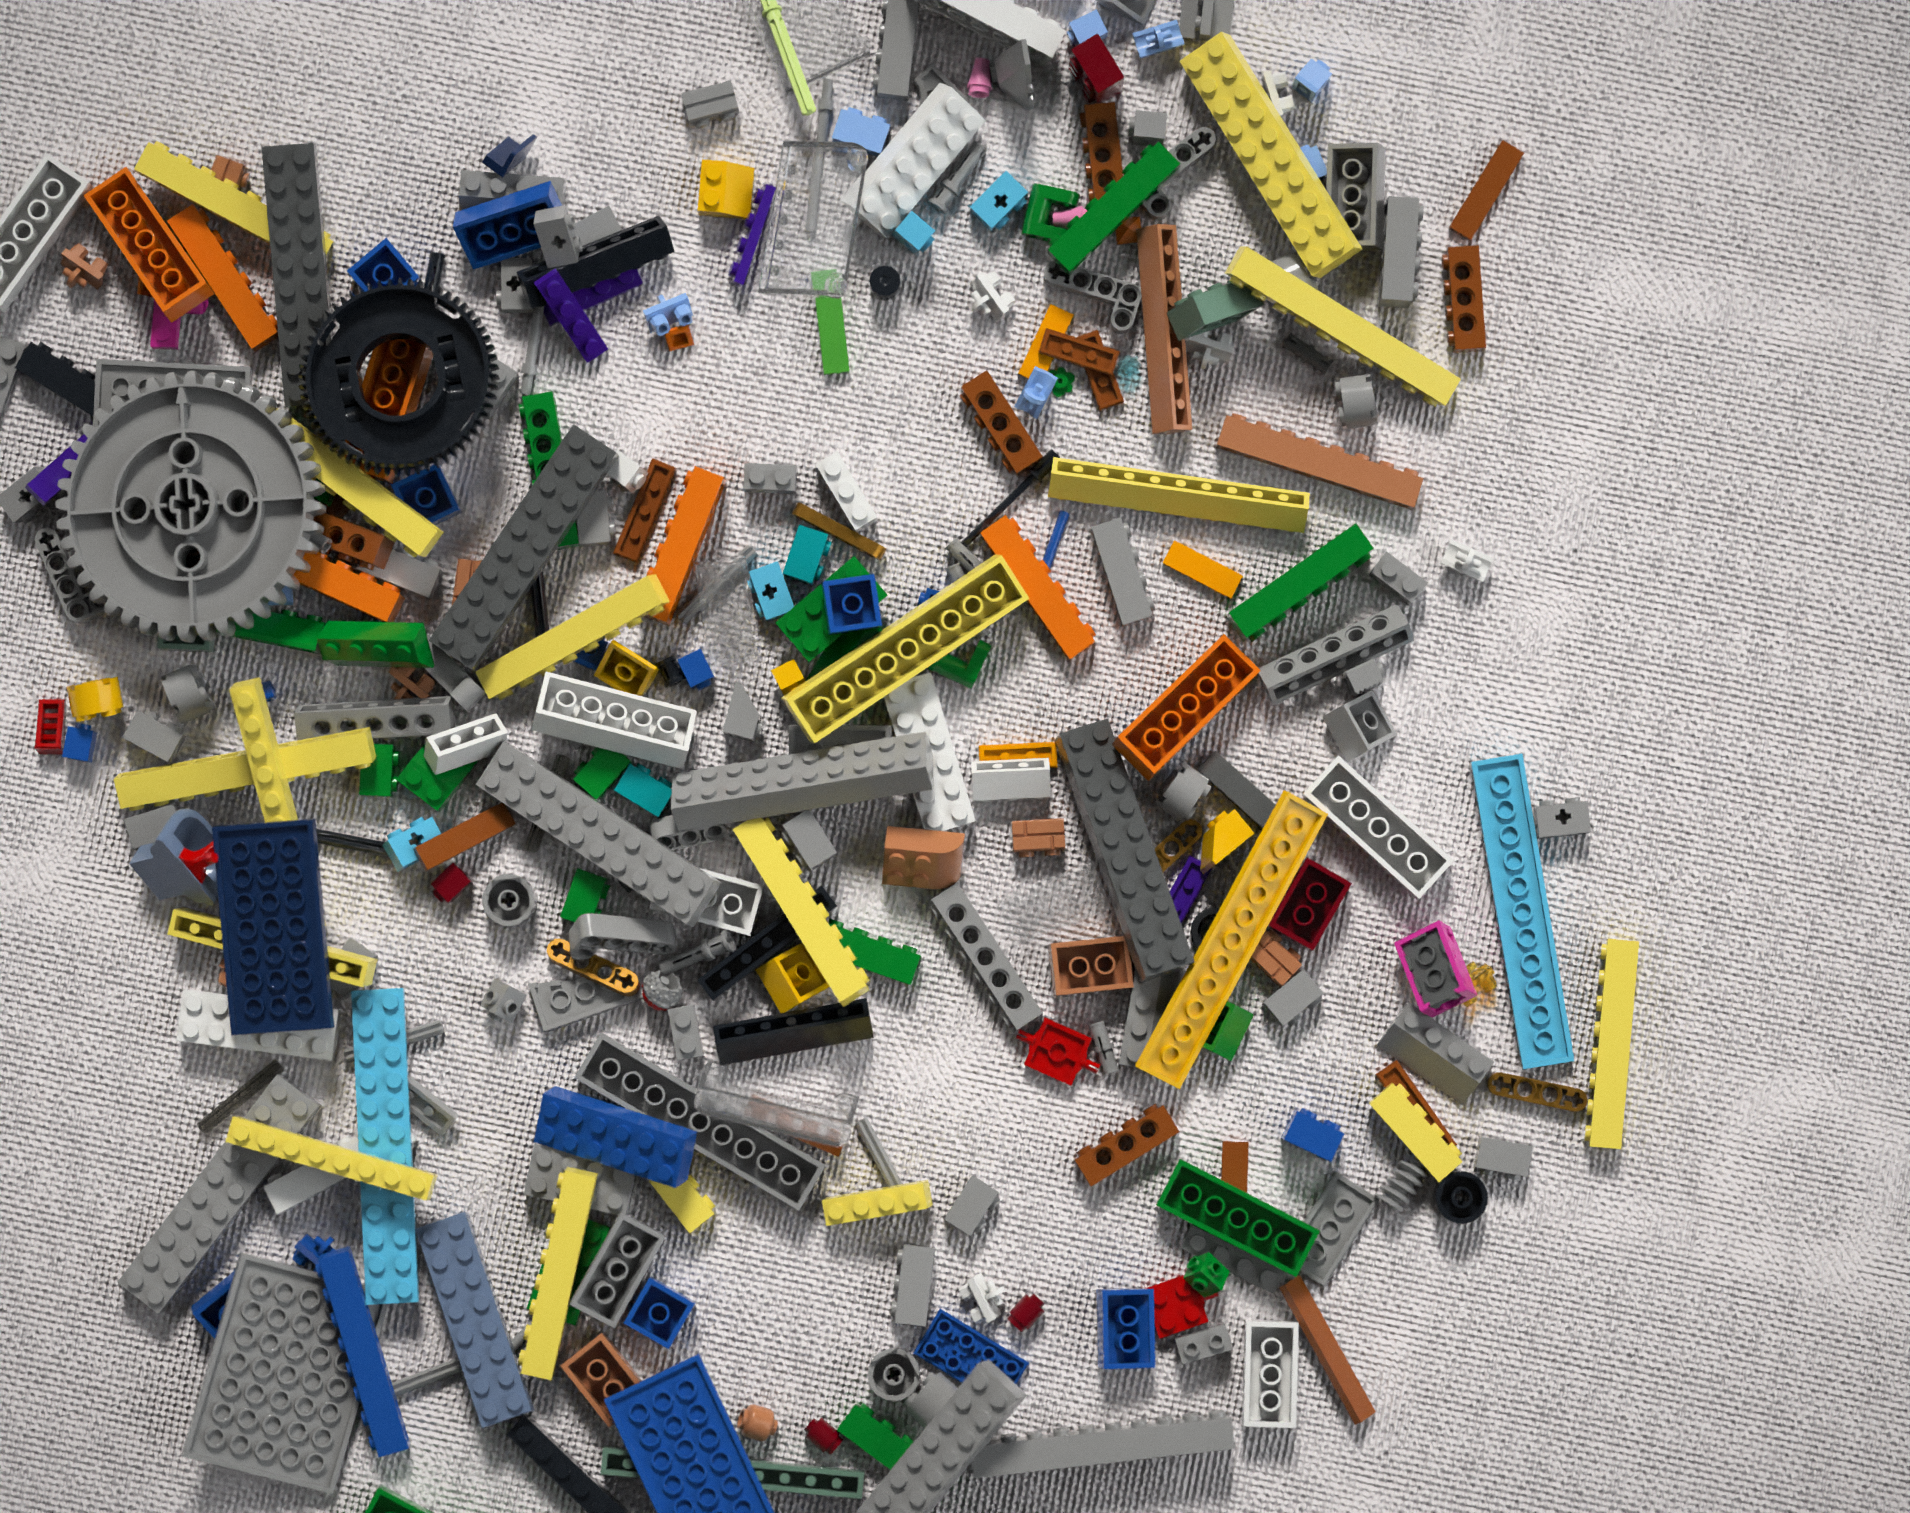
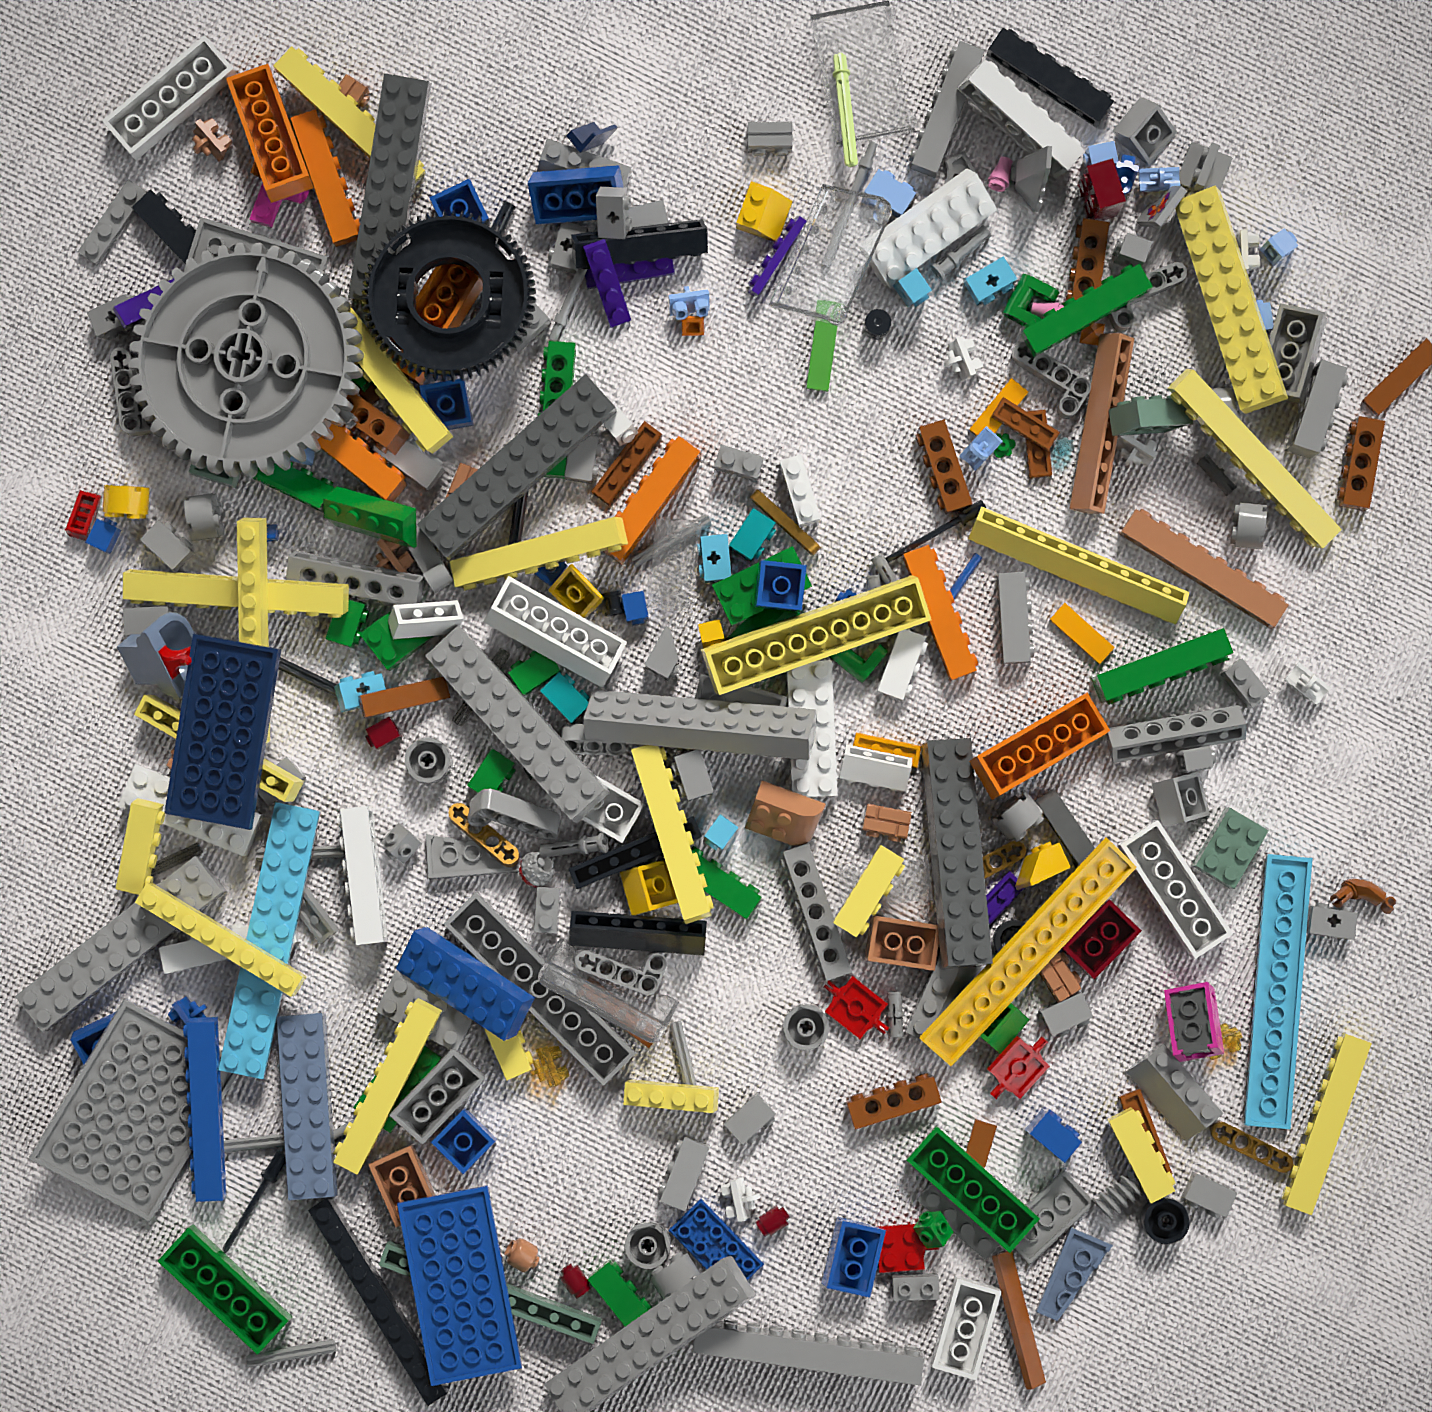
camera: 15 degrees right, 0 degrees up
(213, 1078) = (139, 845): none -> light yellow brick
(453, 1408) = (269, 1175): none -> black piece
(471, 1047) = (363, 875): none -> white brick
(730, 1209) = (545, 1066): none -> clear yellow hips
(781, 1076) = (618, 967): none -> light grey beam
(856, 896) = (720, 833): none -> medium azure brick
(1011, 656) = (902, 664): none -> white brick
(1018, 1077) = (812, 1038): none -> light grey brick
(1036, 918) = (868, 891): none -> light yellow brick
(1118, 43) = (1127, 172): none -> blue hips
(1167, 74) = (1159, 211): none -> light grey tile
(1255, 1070) = (1018, 1067): none -> red plate
(1372, 1280) = (1071, 1271): none -> sand blue wing
(1427, 766) = (1230, 848): none -> sand green brick
(1589, 773) = (1364, 890): none -> dark orange arm

